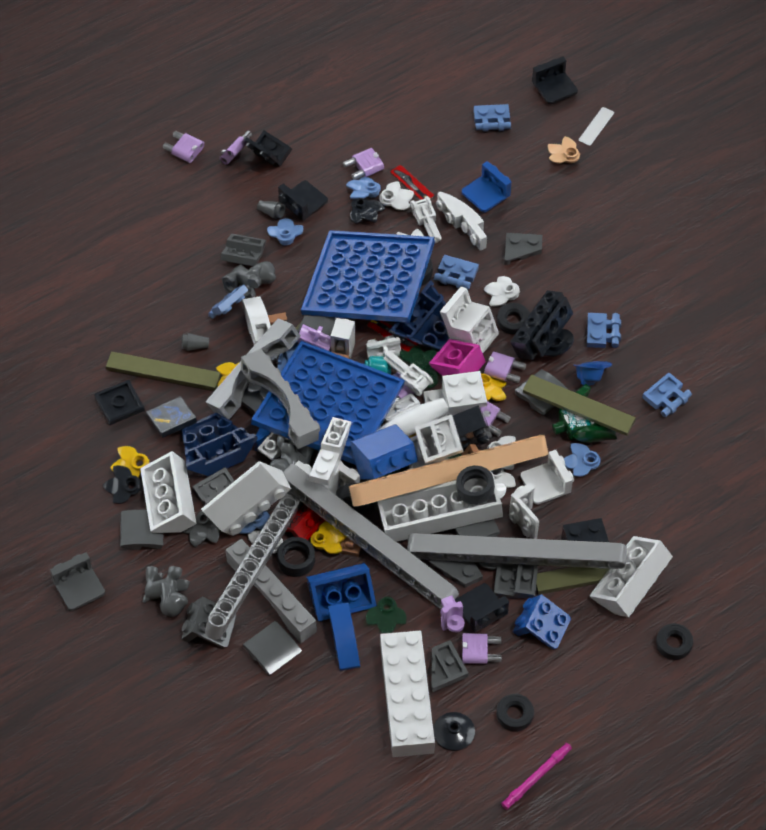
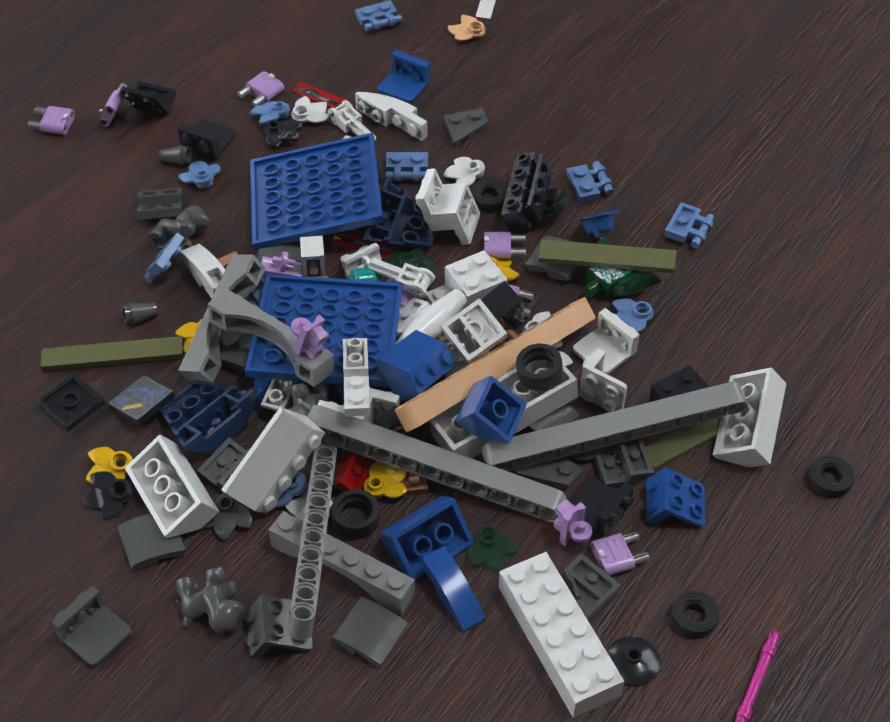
camera: 20 degrees left, 5 degrees down
(303, 409) = (309, 336): none -> lavender hips
(423, 509) = (491, 411): none -> blue slope
(458, 358) = (449, 246): dark pink slope -> none

